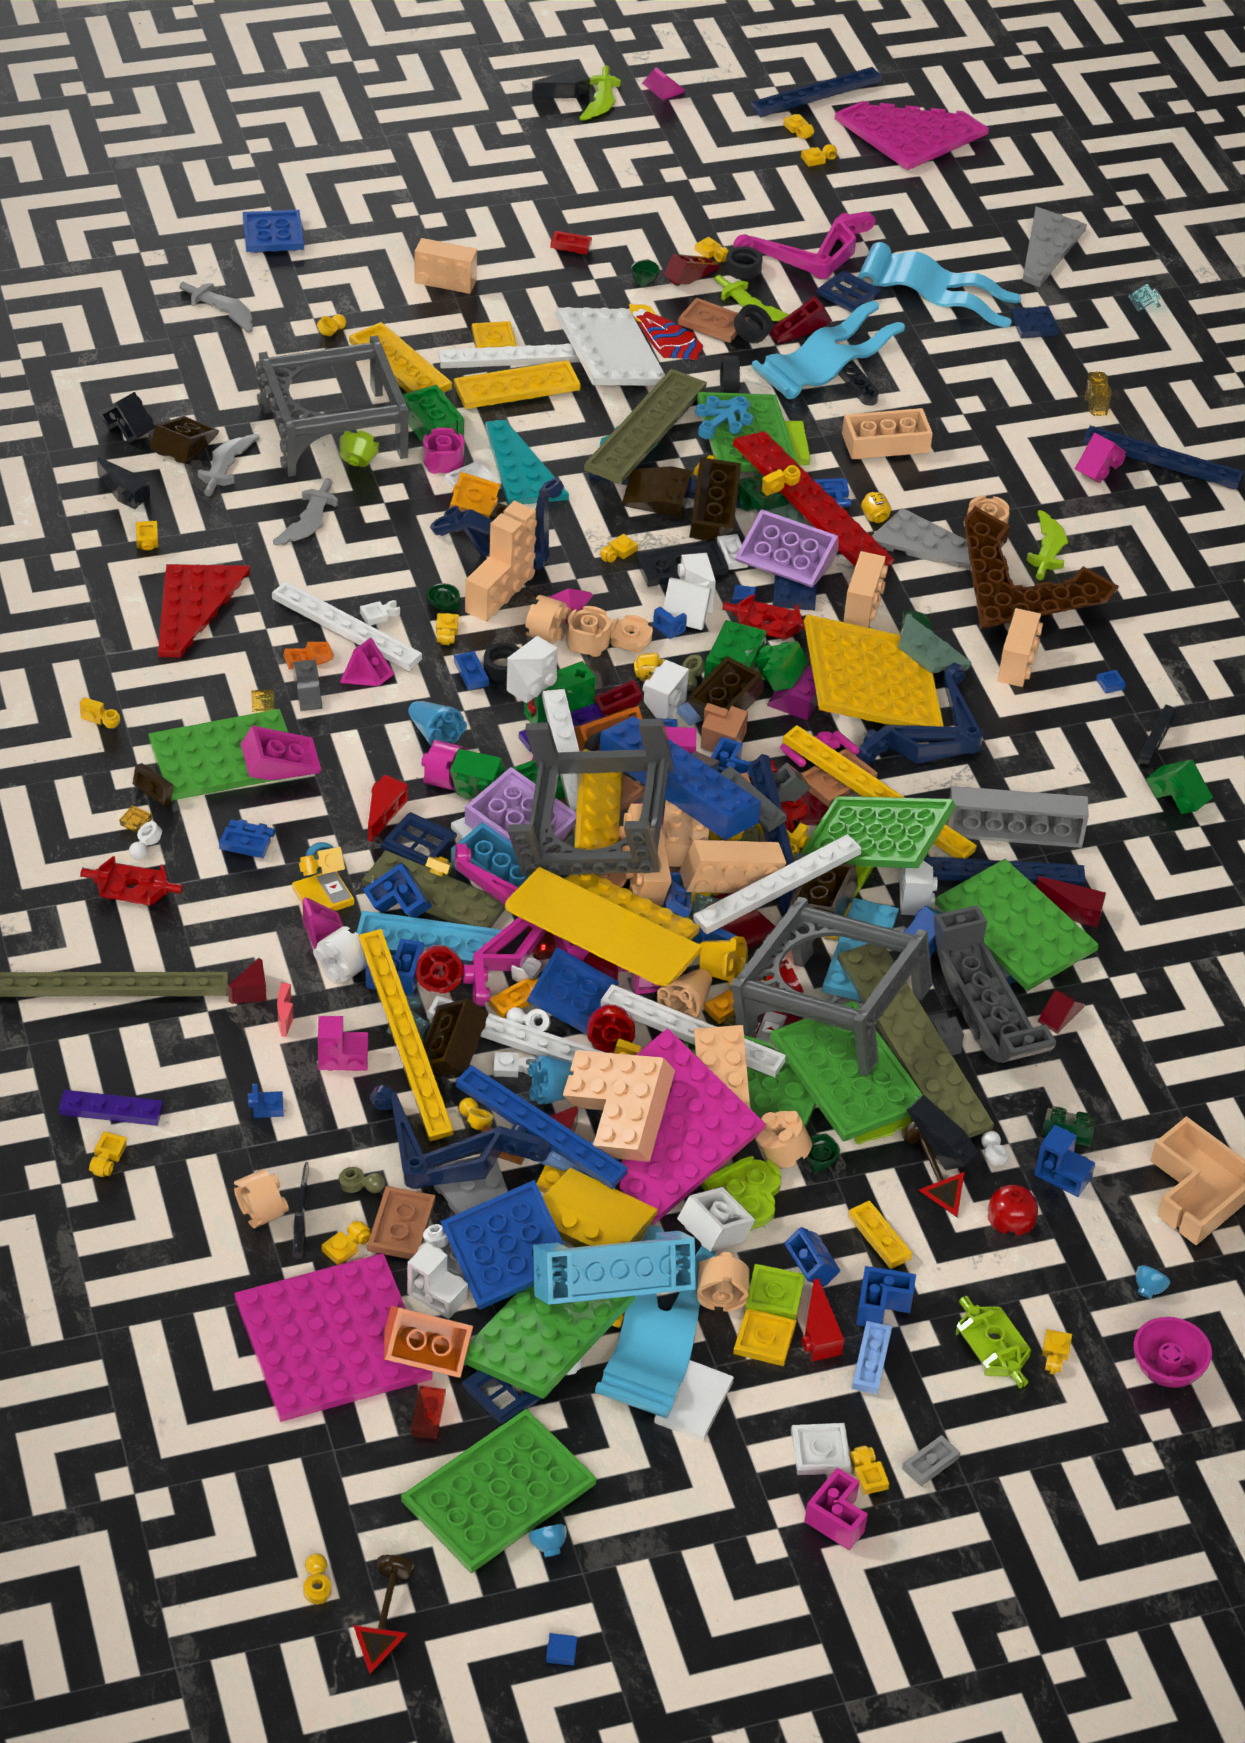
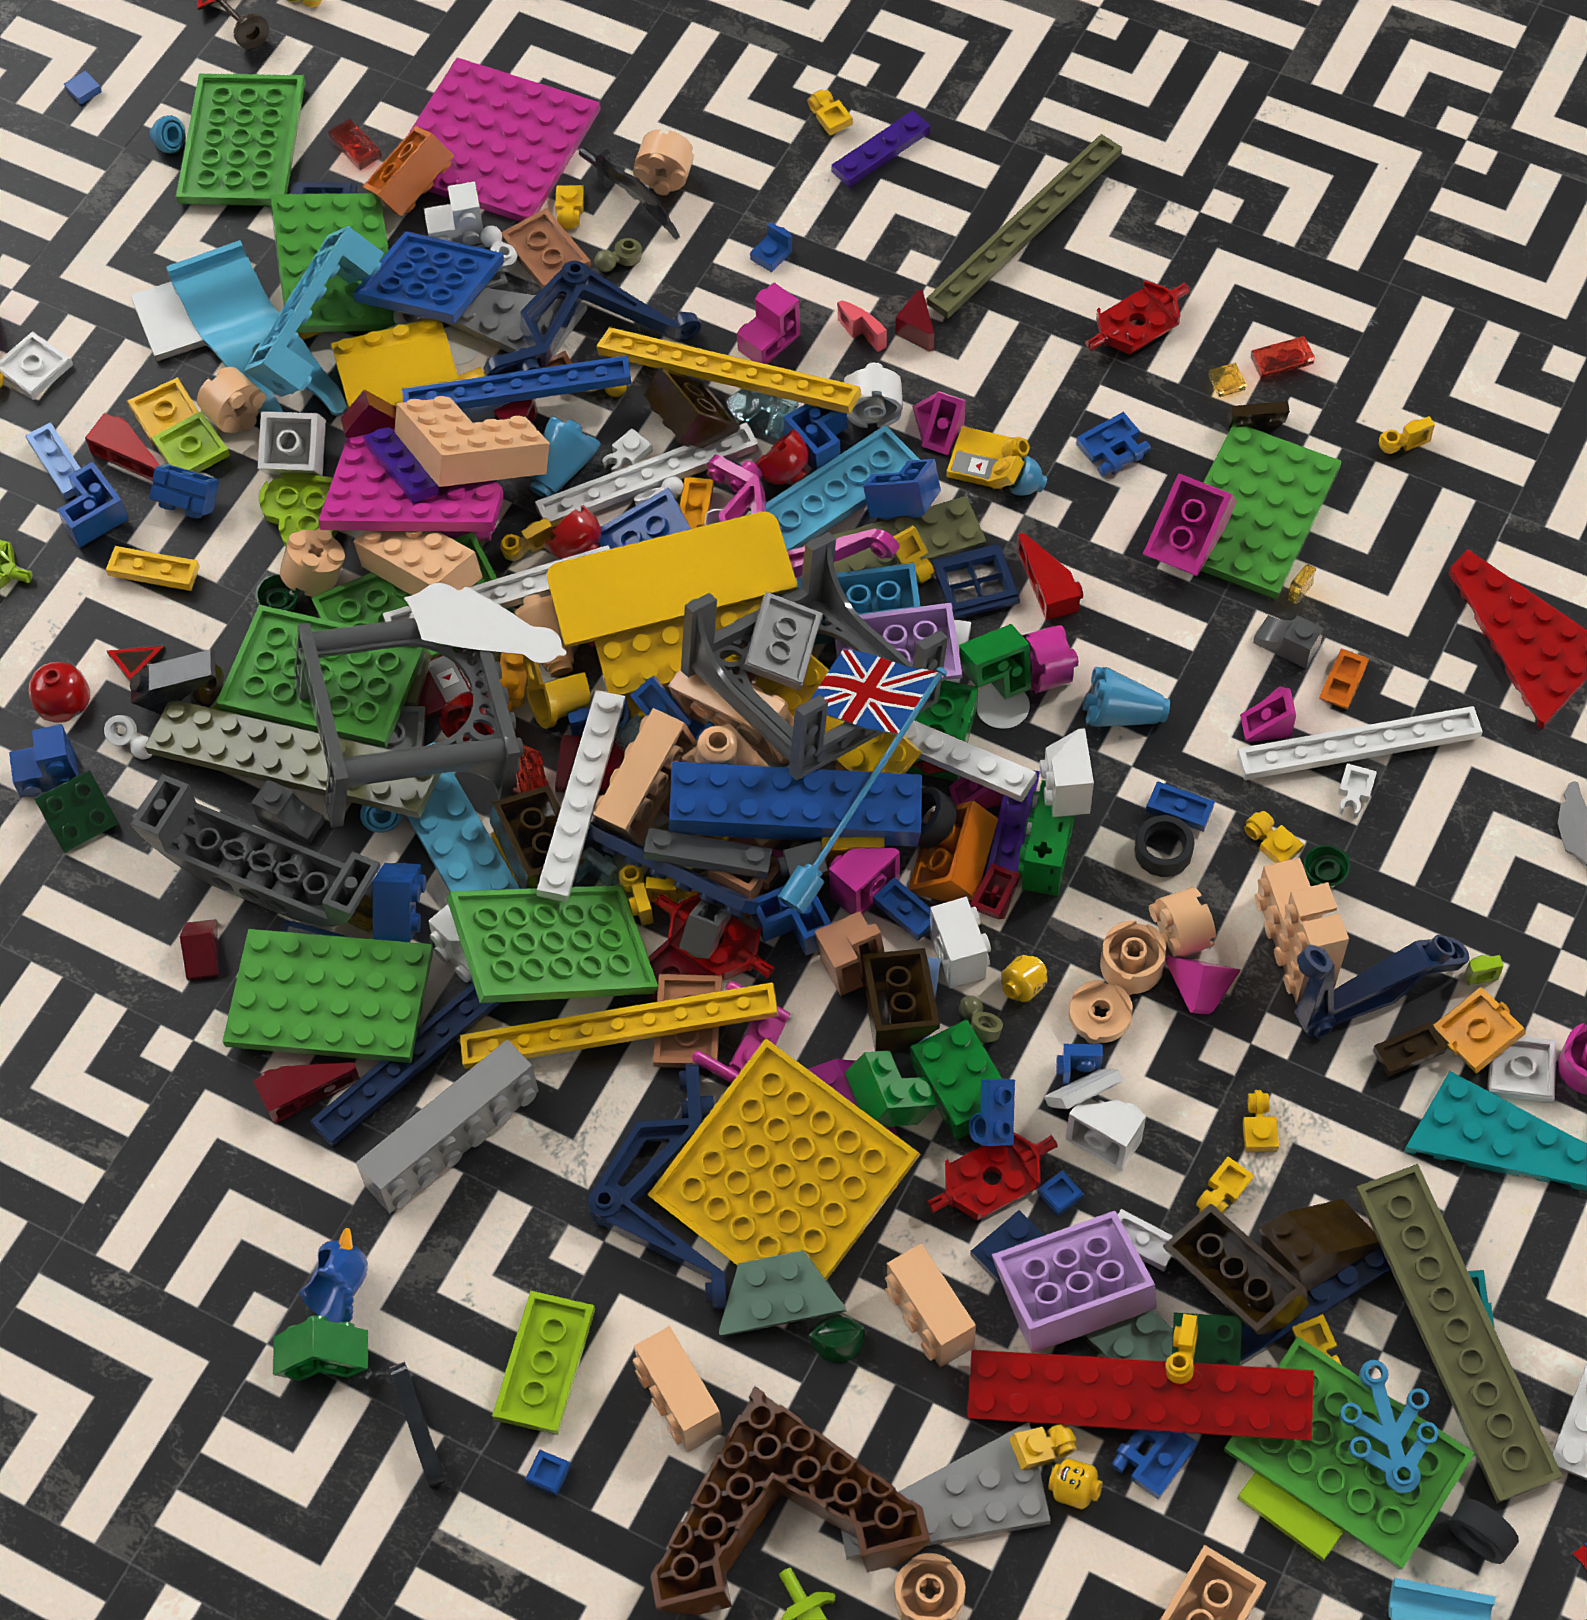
camera: 140 degrees right, 15 degrees up
(91, 801) = (1282, 357): none -> clear red plate
(148, 835) = (1189, 370): white plate -> none
(434, 510) = (1483, 969): none -> lime plate
(589, 833) = (782, 641): none -> light grey tile
(596, 753) = (876, 698): none -> flag
(651, 1190) = (368, 415): none -> dark red slope
(662, 564) = (1170, 1165): black plate -> none
(666, 539) = (1228, 1182): none -> yellow plate
(673, 1125) = (401, 464): none -> dark purple plate
(691, 817) = (717, 746): none -> light nougat head
(746, 972) = (477, 623): none -> white sticker
(747, 616) = (996, 1121): none -> blue plate
(878, 526) = (1035, 1449): none -> yellow plate
(1068, 713) = (543, 1362): none -> lime plate
(1141, 806) = (336, 1279): none -> blue hair

